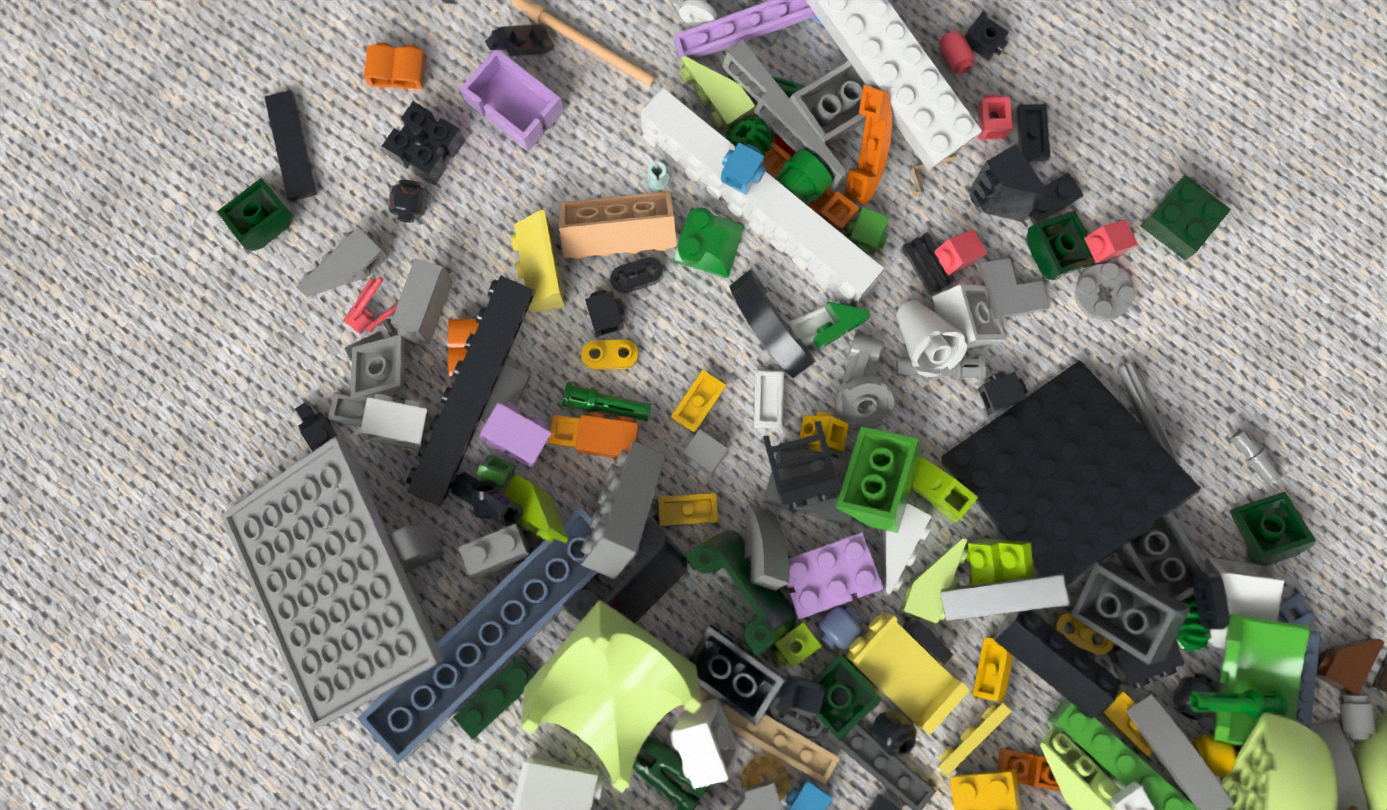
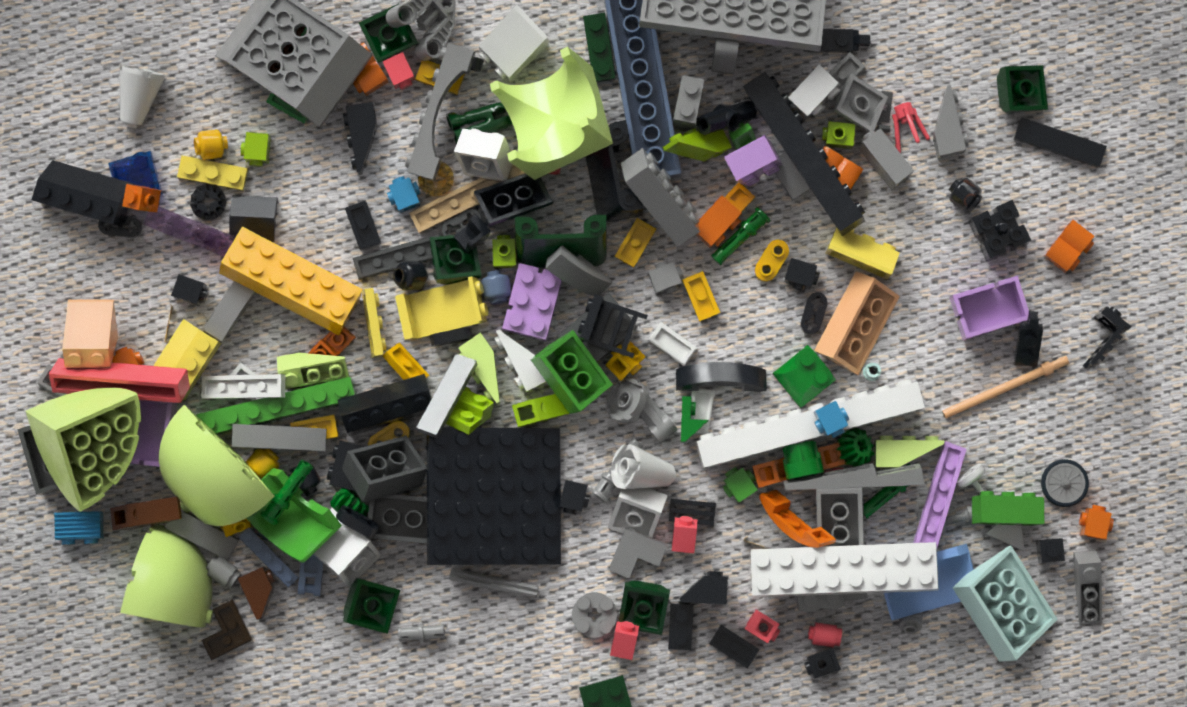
camera: 125 degrees right, 5 degrees up
(427, 370) = (839, 135): none -> lime brick

